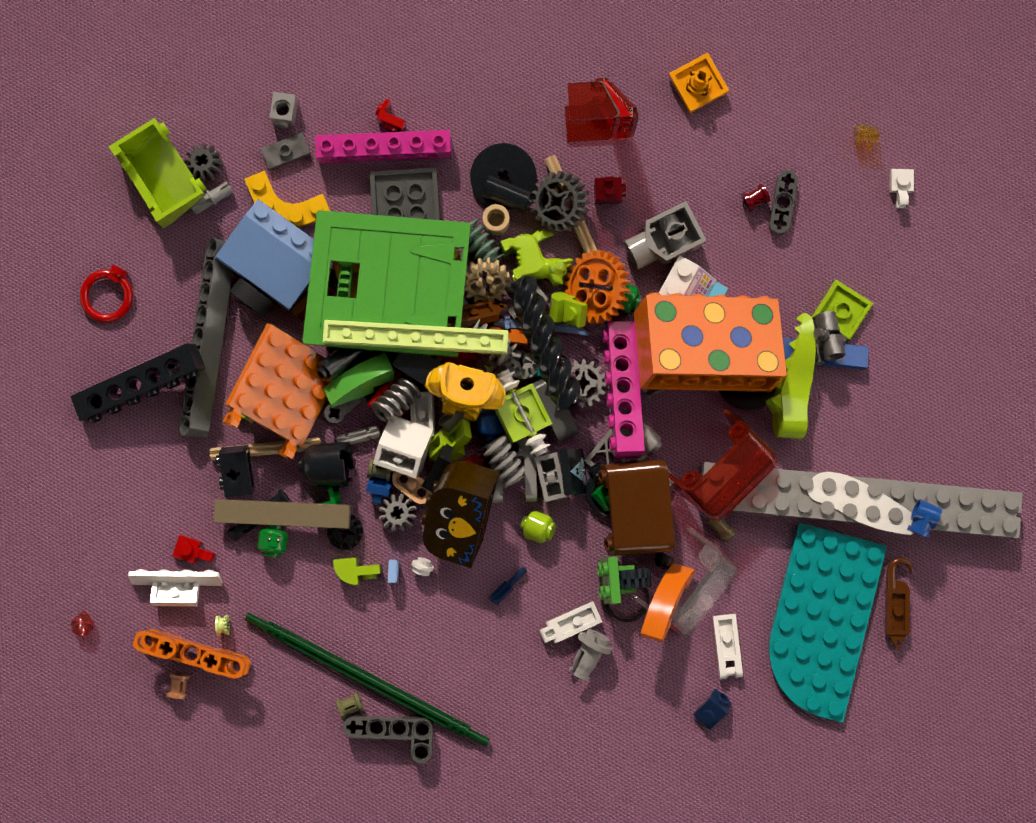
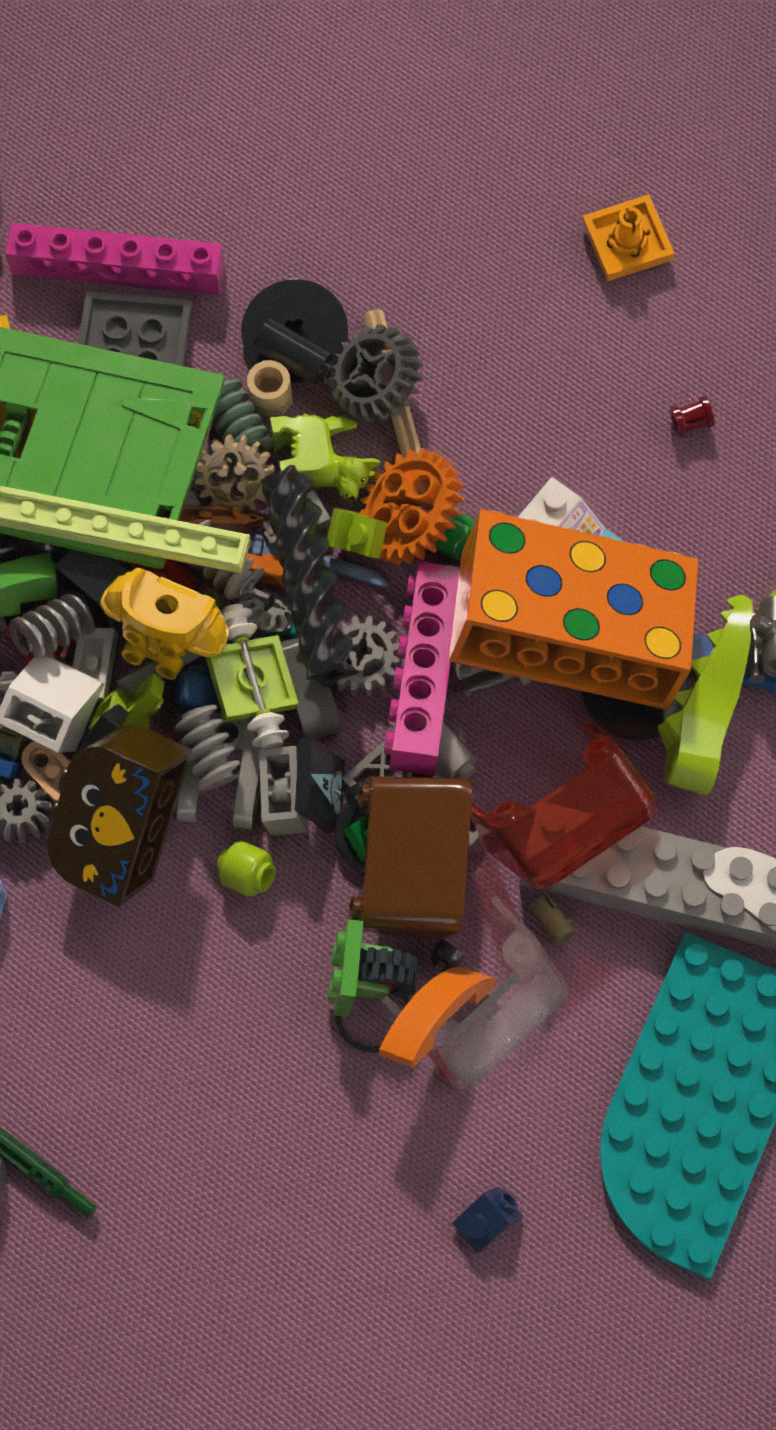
camera: 15 degrees right, 15 degrees down
(390, 121) = (128, 218): red bracket -> none
(422, 566) = (42, 903): white plate -> none
(506, 587) = (174, 961): dark blue axle -> none
(571, 623) = (271, 1035): white hinge -> none
(592, 647) = (292, 1086): light grey piece -> none
(599, 112) = (477, 256): clear red windscreen -> none
(609, 190) = (457, 371): dark red brick -> none
(666, 237) = (535, 448): light grey brick -> none
(727, 645) = (530, 1114): white plate -> none
(786, 219) = (730, 418): dark grey beam -> none

